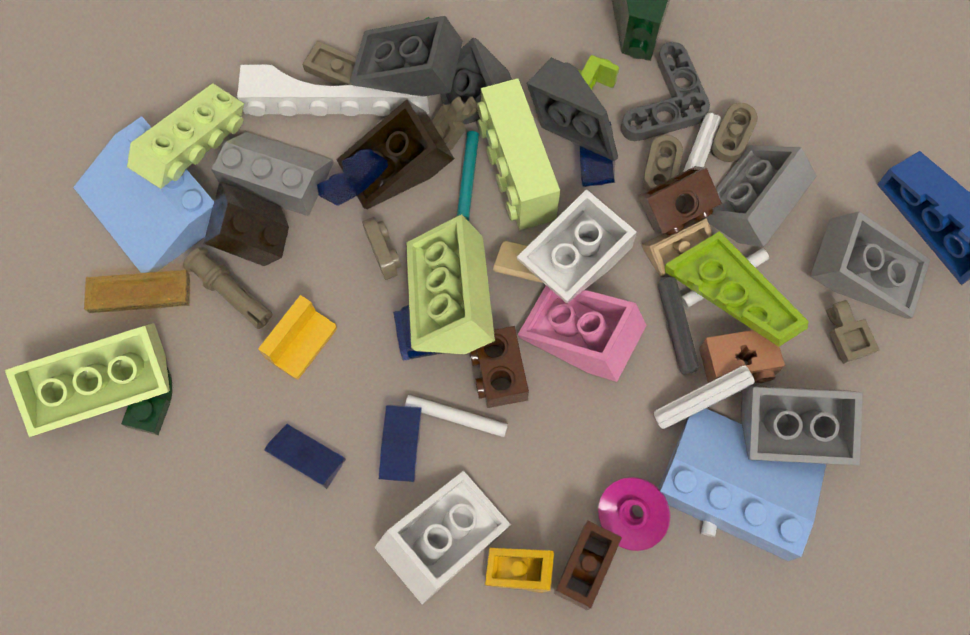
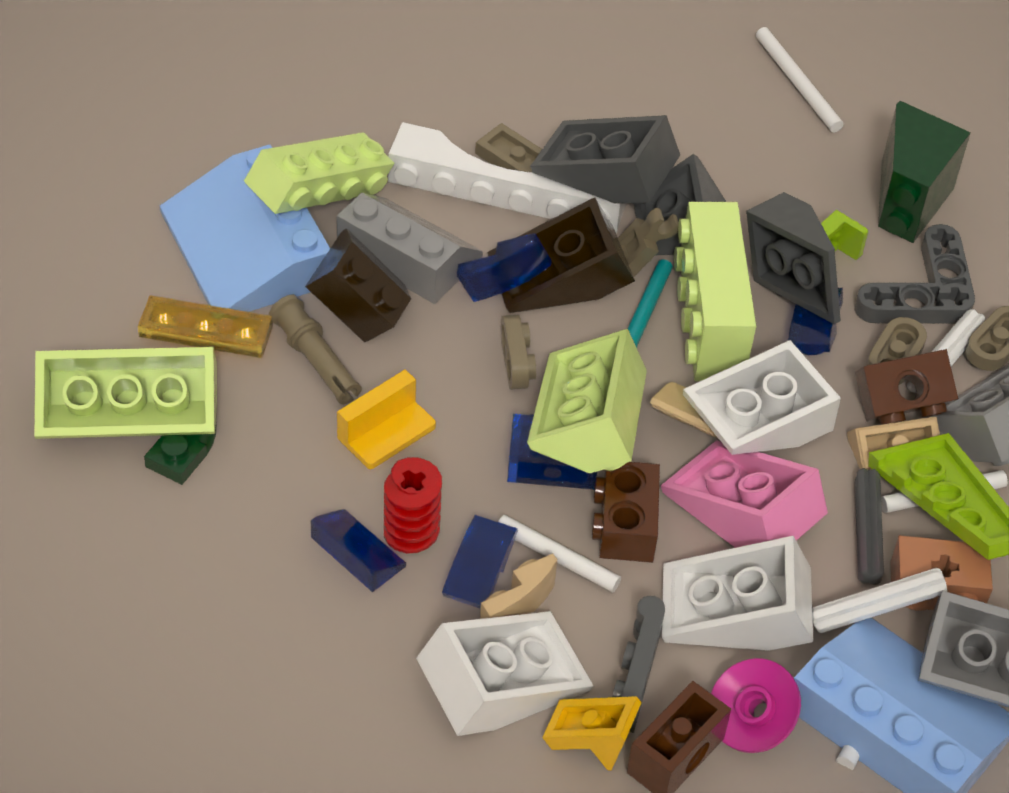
camera: 10 degrees right, 20 degrees down
(337, 419) = (412, 505): none -> red piece
(443, 456) = (529, 589): none -> tan slope
(540, 498) = (640, 655): none -> dark grey plate
(599, 421) = (740, 597): none -> white slope

